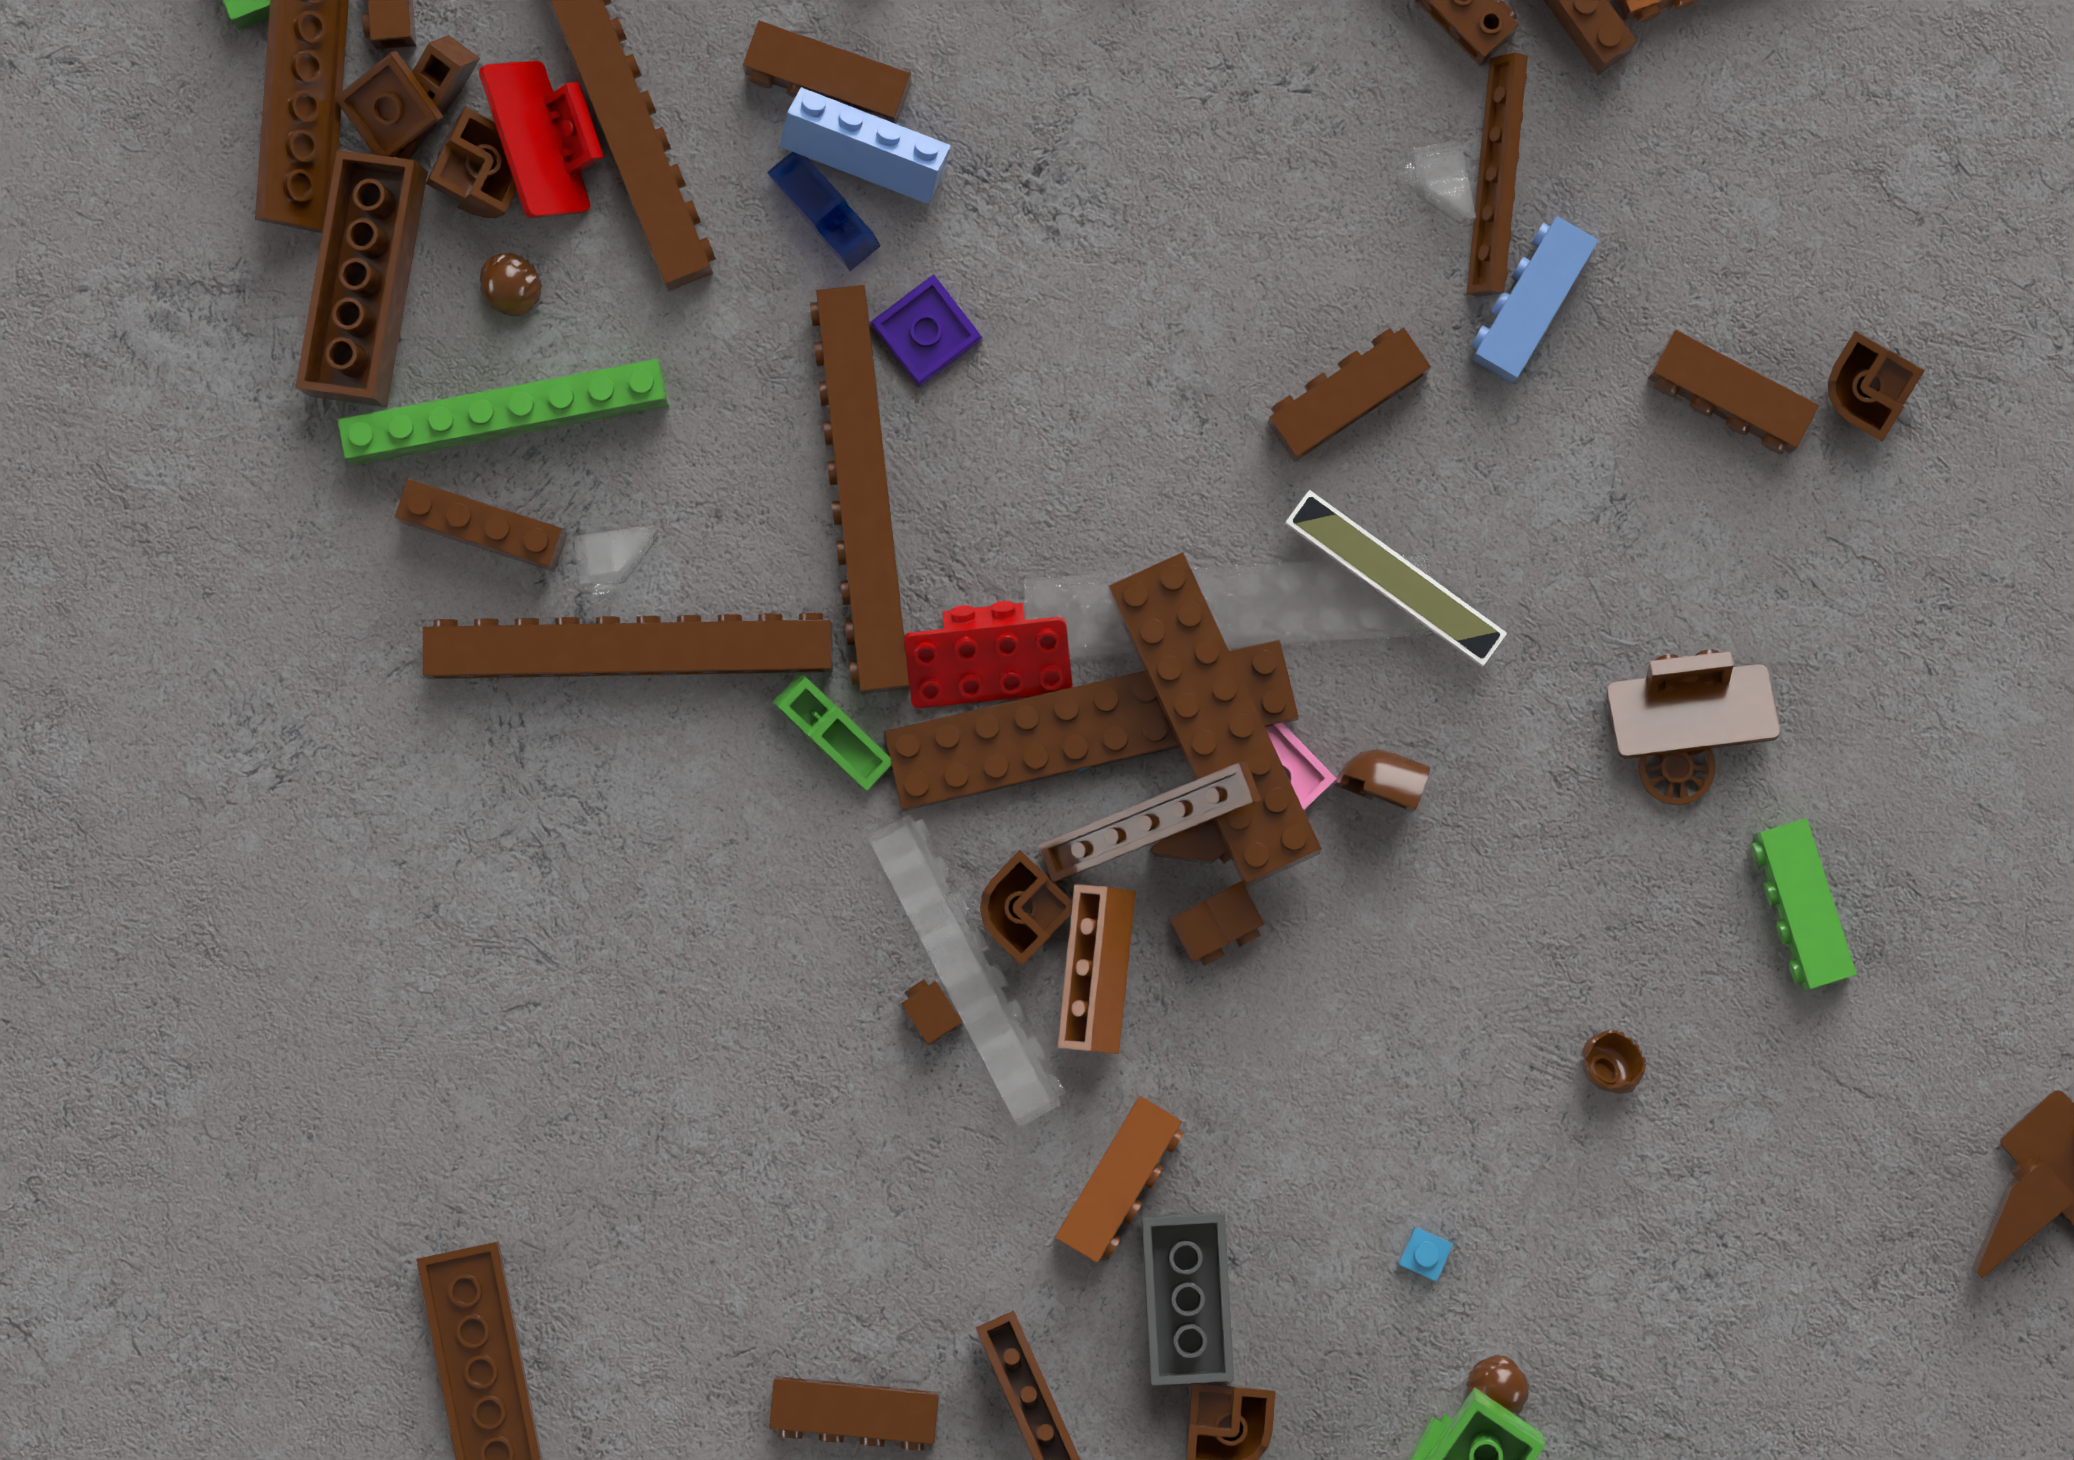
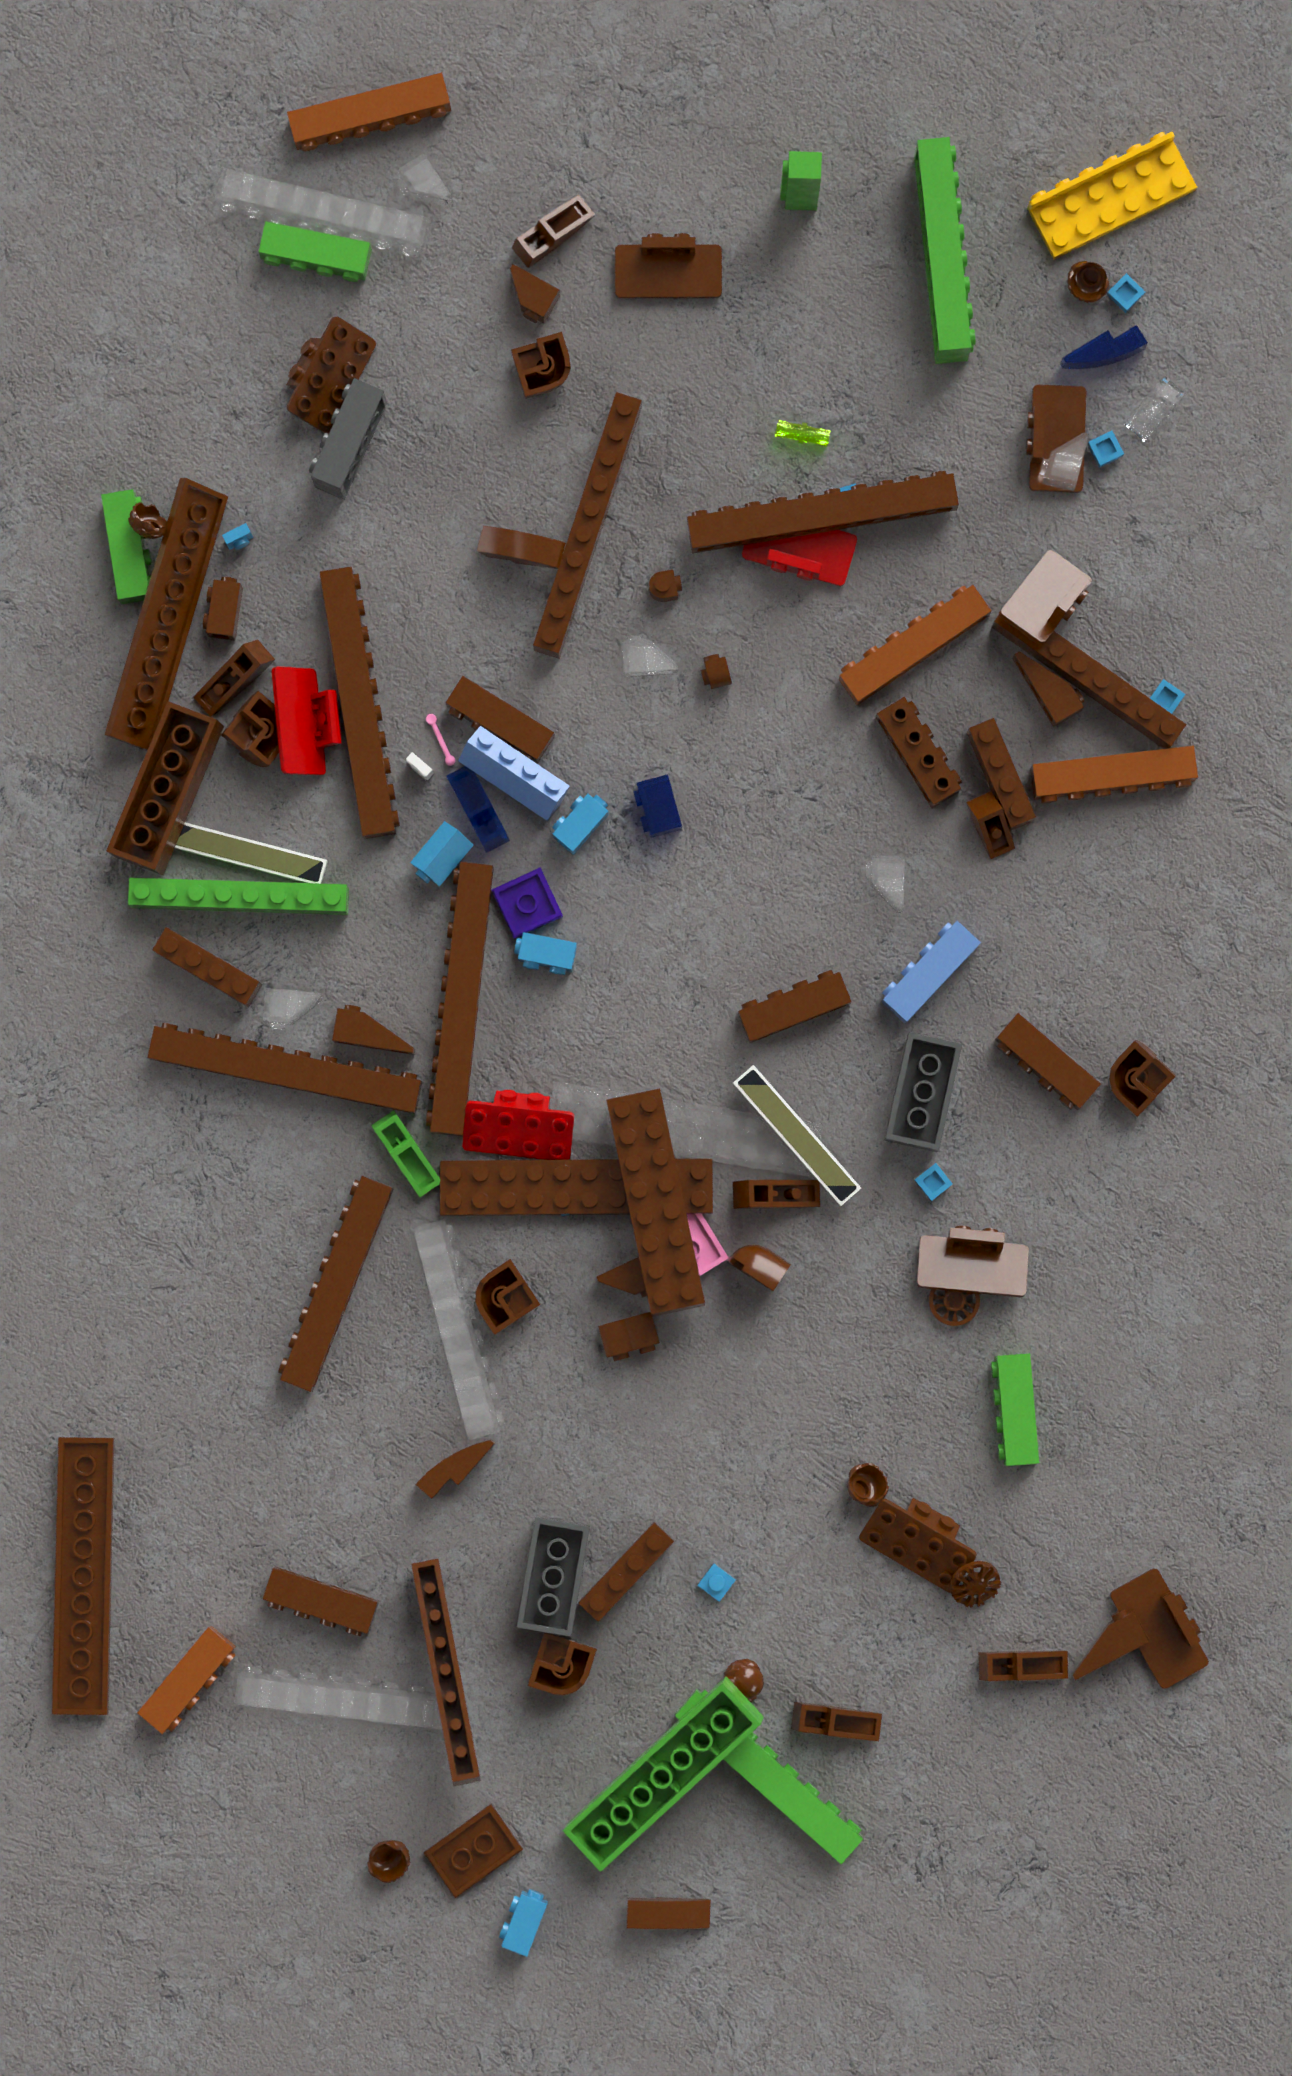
camera: 15 degrees right, 0 degrees up
(388, 106) = (208, 679): reddish brown tile -> none
(508, 348) = (251, 854): none -> olive tile
(510, 284) = (261, 812): reddish brown hair -> none
(725, 167) = (419, 766): none -> white tile
(726, 567) = (361, 1030): none -> reddish brown slope
(727, 98) = (431, 720): none -> bright pink hinge
(773, 943) = (336, 1284): none -> reddish brown brick
(785, 286) = (441, 854): none -> dark azure brick
(930, 1010) = (429, 1350): reddish brown brick -> none
(970, 394) = (546, 952): none -> dark azure brick
(978, 197) = (581, 822): none -> dark azure brick
(1006, 1172) = (453, 1467): none -> reddish brown slope
(1085, 148) = (658, 806): none -> clear blue brick
(1096, 969) = (543, 1348): dark orange brick -> none
(1118, 1180) = (527, 1488): dark orange brick -> none
(1150, 821) = (598, 1260): plate -> none
(1291, 1267) = (626, 1571): none -> reddish brown brick
(1383, 670) = (776, 1194): none -> reddish brown slope
(1497, 174) = (925, 884): reddish brown plate -> none
(1564, 475) = (923, 1092): none -> dark grey brick
(1572, 68) = (991, 824): none -> reddish brown slope
(1607, 602) = (933, 1182): none -> dark azure plate
(1646, 1417) = (836, 1721): none -> reddish brown slope
(1708, 1128) = (918, 1540): none -> reddish brown bracket
(1803, 1171) = (975, 1583): none -> reddish brown wheel
(1898, 1274) = (1023, 1665): none -> reddish brown slope

